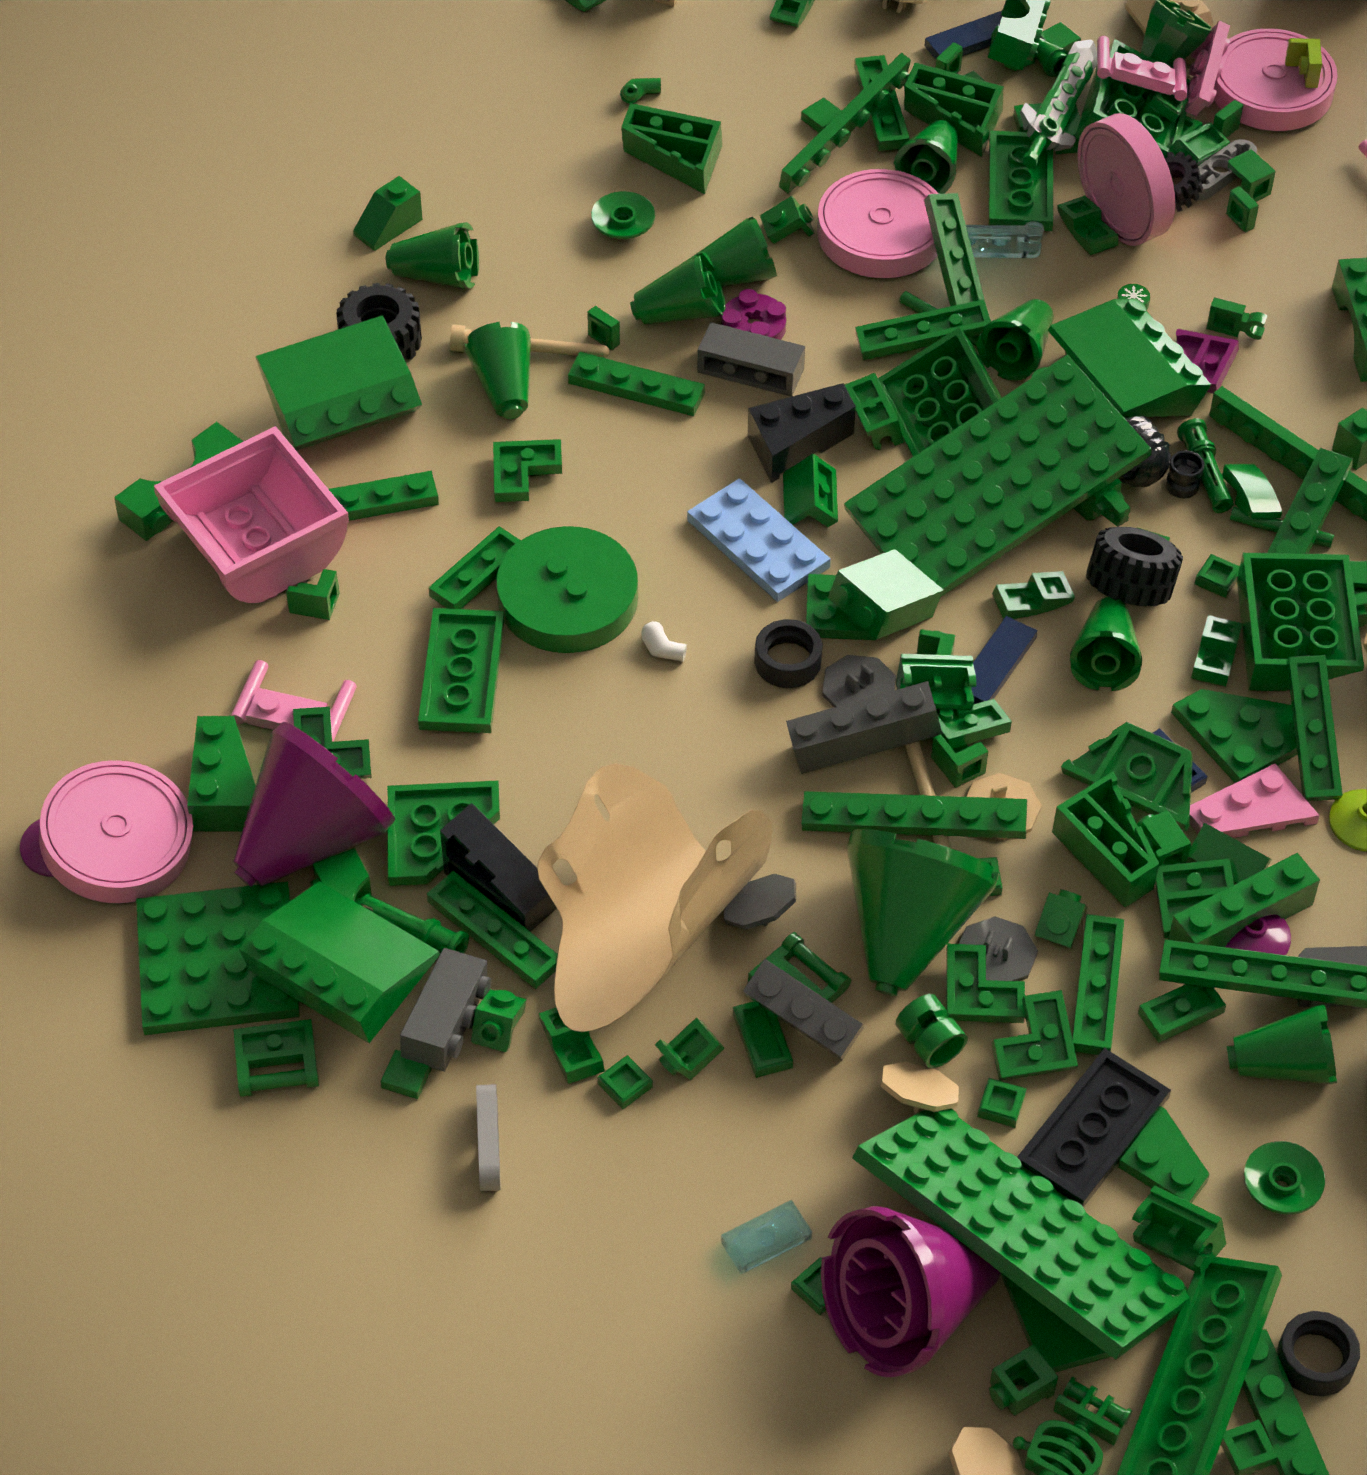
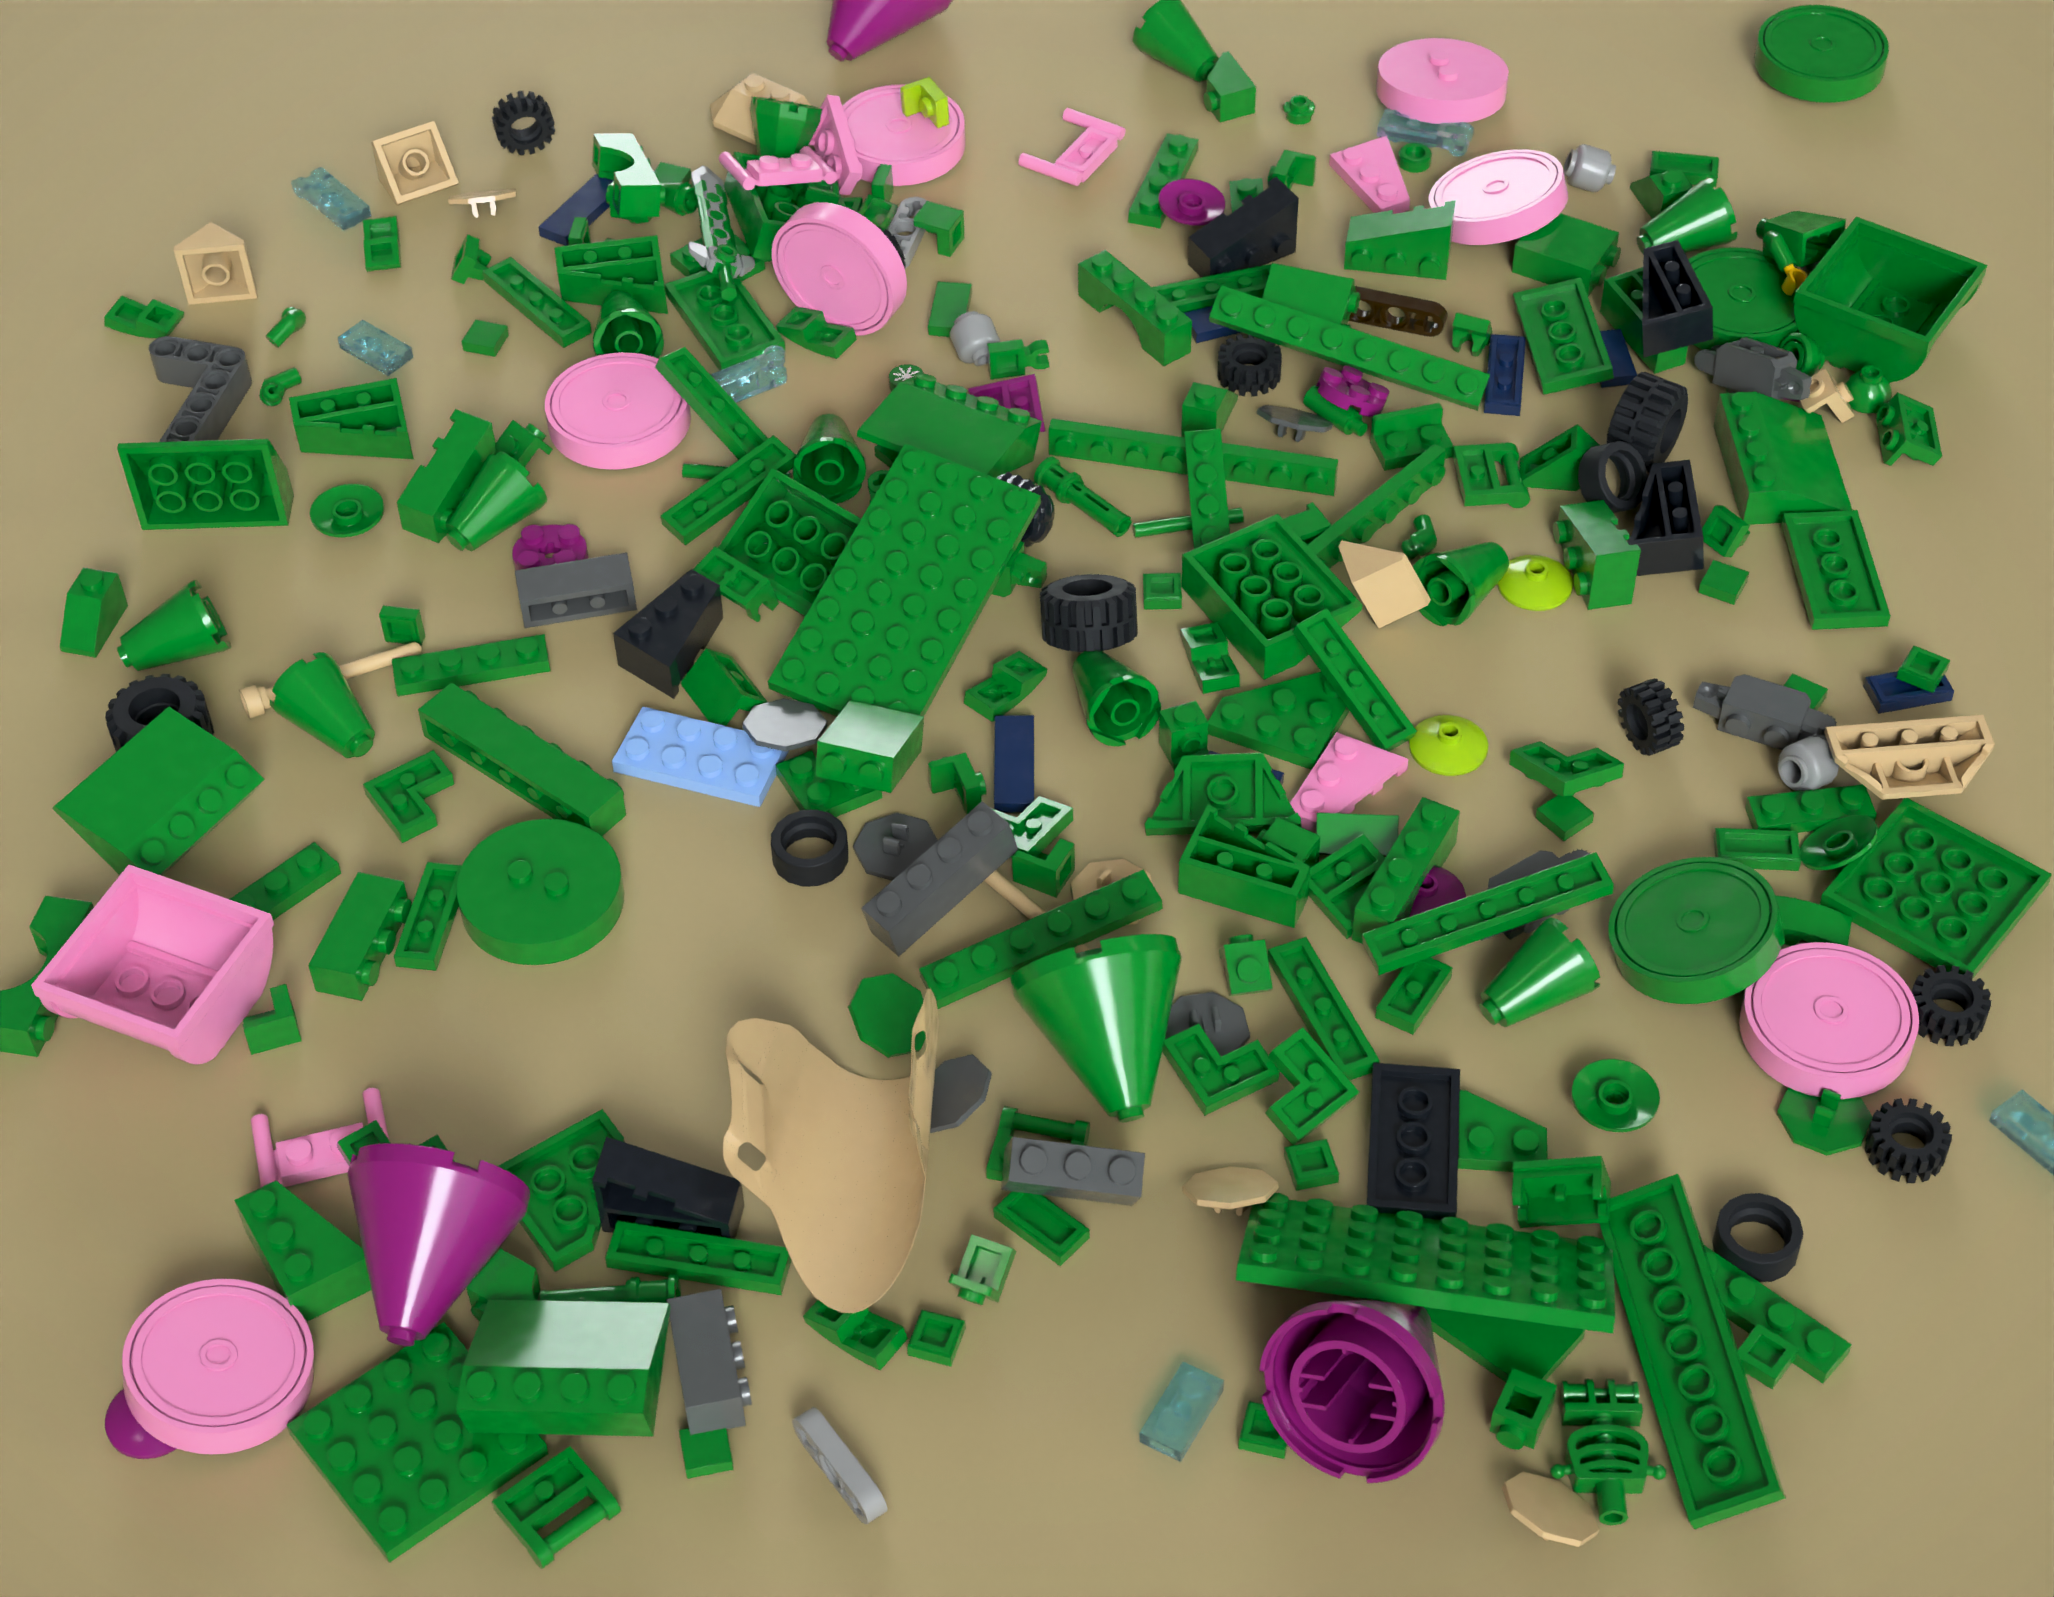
camera: 30 degrees left, 5 degrees down
(415, 560) = (360, 936): none -> green brick
(461, 670) = (485, 1022): green plate -> none
(496, 1019) = (765, 1345): green bracket -> none
(529, 149) = (207, 484): none -> green slope
(597, 67) = (218, 382): none -> dark grey beam
(620, 480) = (521, 760): none -> green brick
(659, 645) = (673, 901): white arm -> none
(681, 294) = (463, 559): green cone -> none
(684, 38) = (291, 321): none -> green arm
(702, 224) = (441, 485): none -> green wedge
(732, 88) = (375, 347): none -> clear light blue plate
(761, 796) = (885, 1014): none -> green piece
(834, 544) = (784, 724): none -> piece
(840, 128) = (517, 340): green plate -> none
(852, 44) = (470, 261): none -> green tile
(931, 1031) = (1218, 1128): green wheel -> none
(948, 678) = (991, 785): green hinge -> none
(1146, 702) = (1183, 732): none -> green brick
(1184, 474) = (1070, 513): black wheel -> none
(1209, 282) = (971, 335): none -> light grey head
(1212, 253) = (948, 304): none -> green tile
(1242, 209) = (952, 258): green tile -> none
(1254, 491) = (1145, 501): slope -> none

